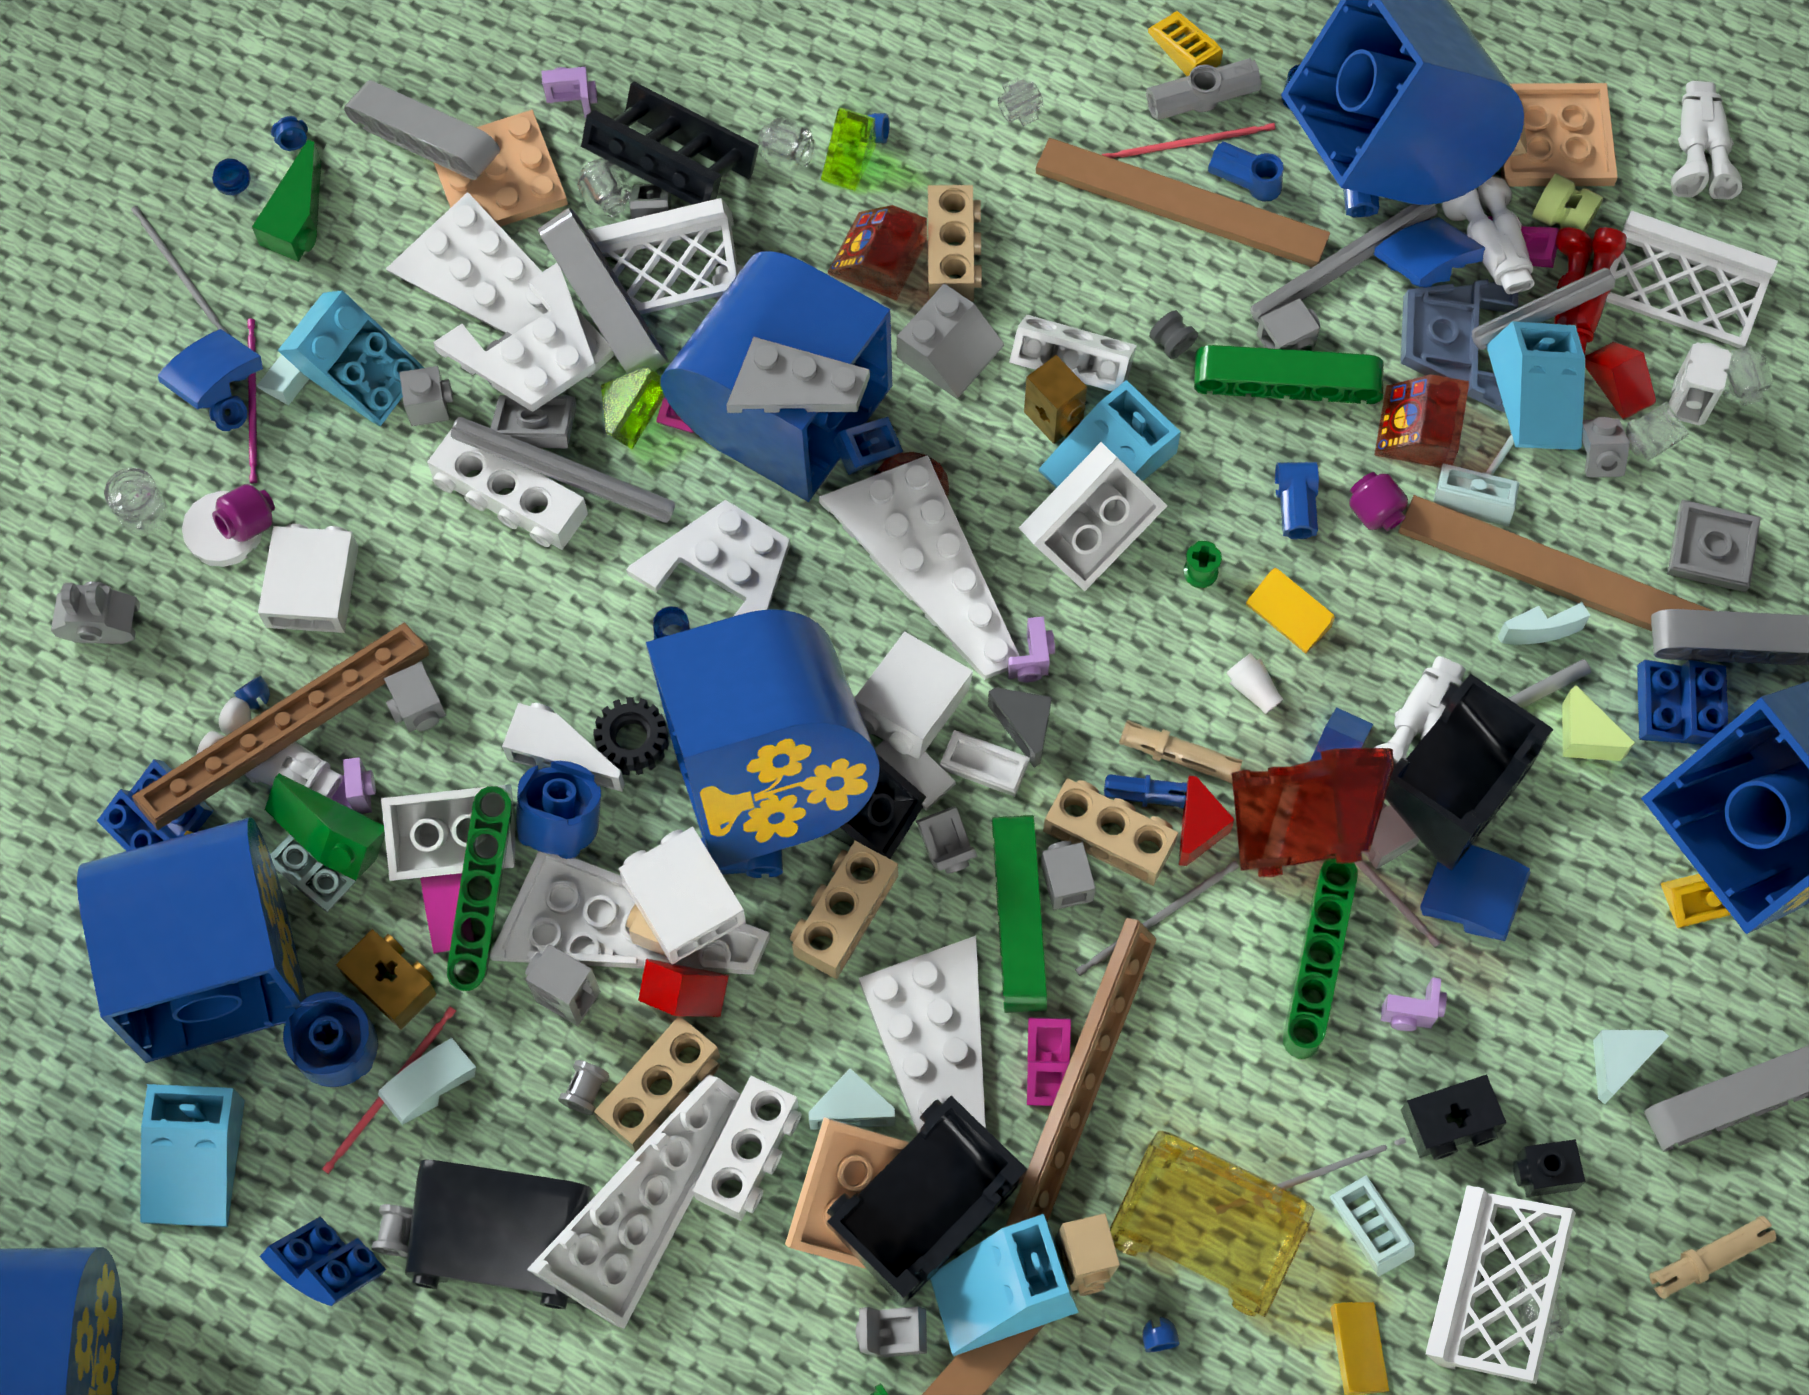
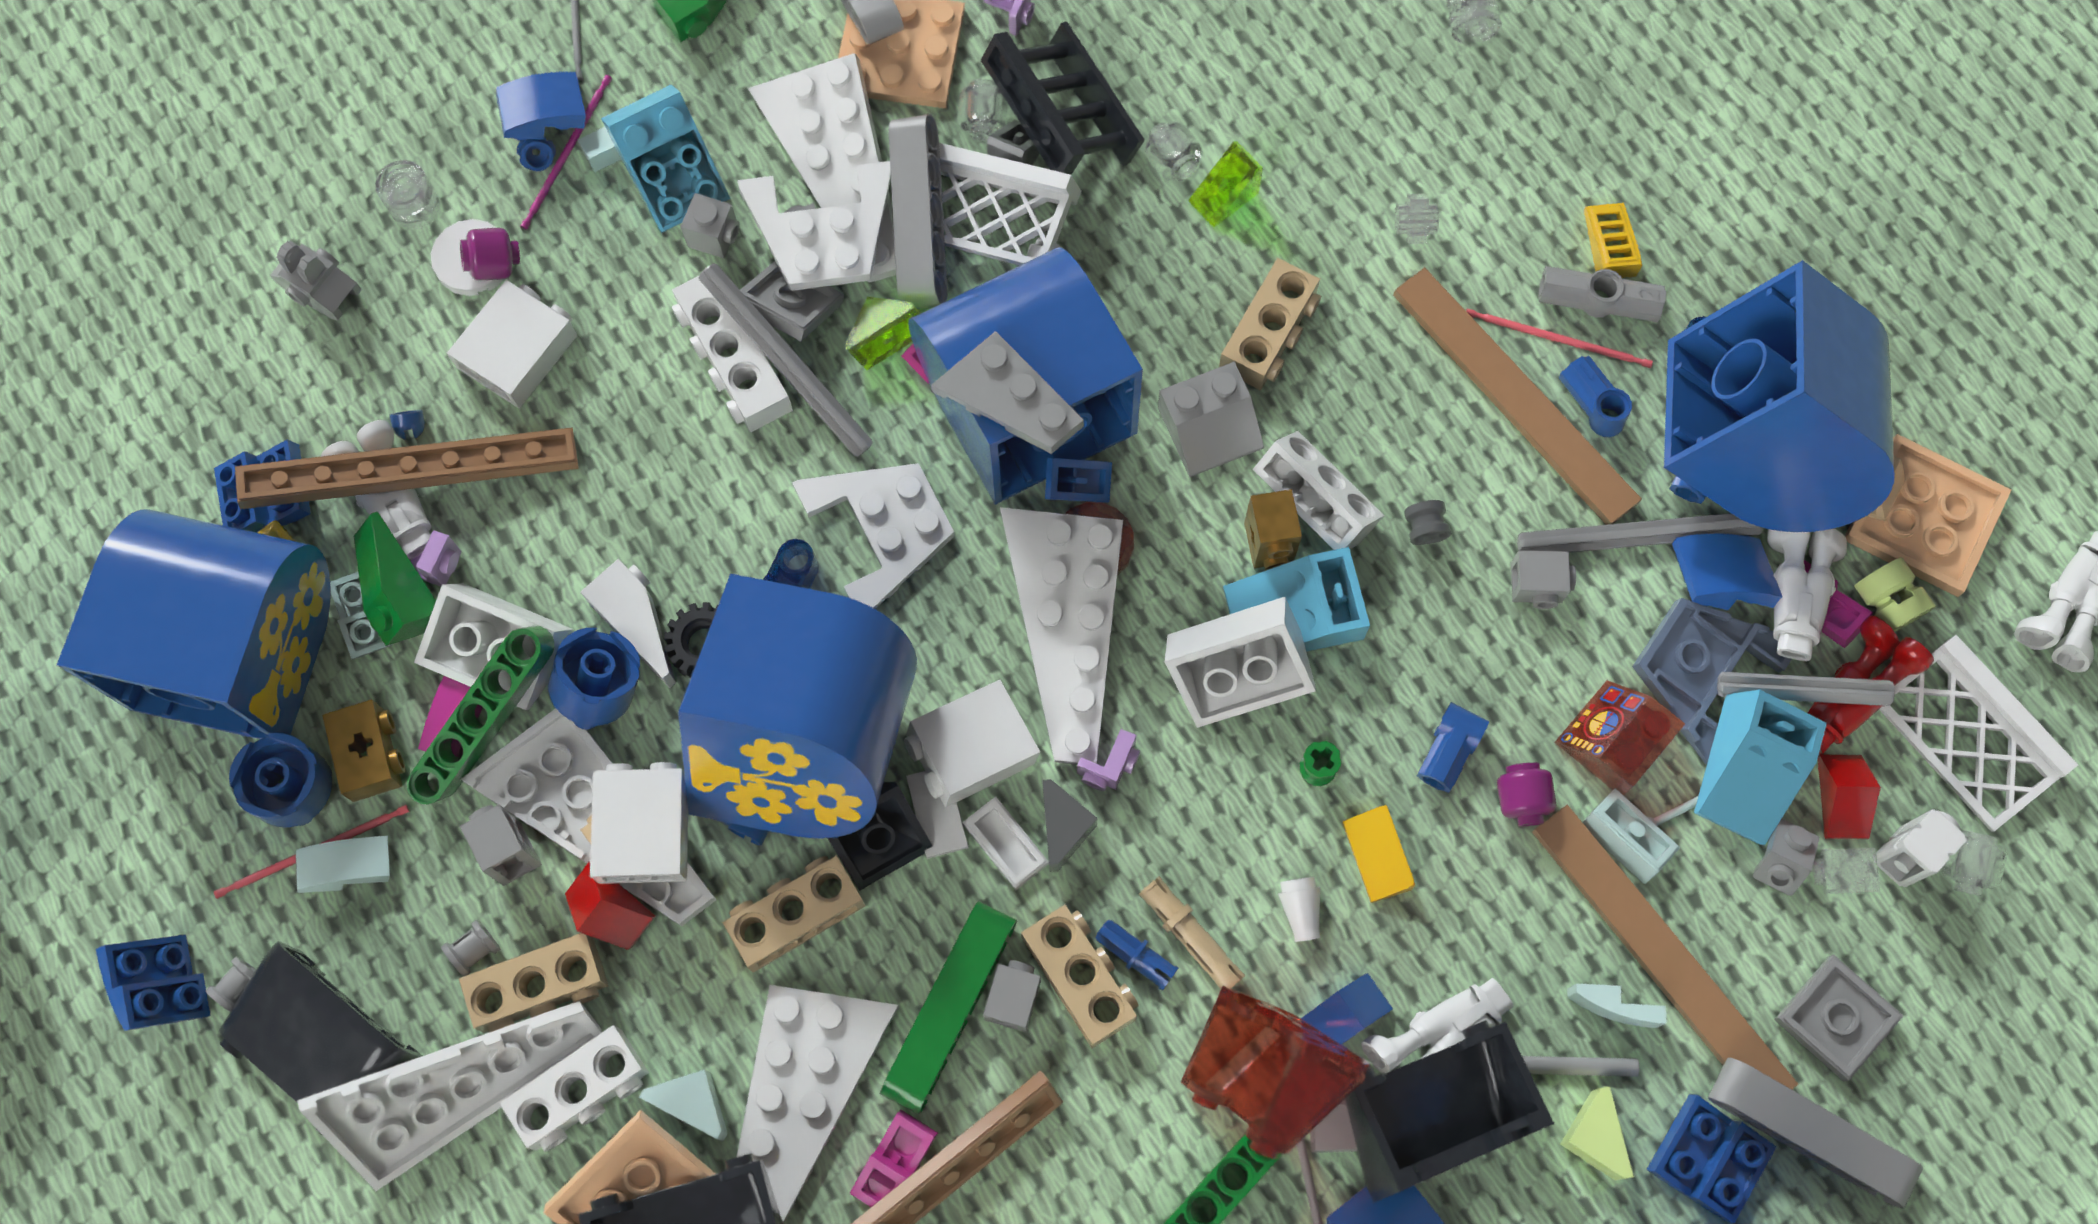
camera: 30 degrees right, 5 degrees up
(189, 1154) = (107, 816): medium azure slope -> none
(414, 699) = (537, 504): light grey brick -> none
(881, 250) = (1201, 298): clear red slope -> none
(882, 126) = (1271, 173): blue hinge -> none
(946, 840) = (923, 900): light grey bracket -> none
(1163, 913) = (1085, 1081): light grey piece -> none
(1203, 821) = (1169, 1016): red slope -> none
(1289, 373) = (1517, 619): green beam -> none

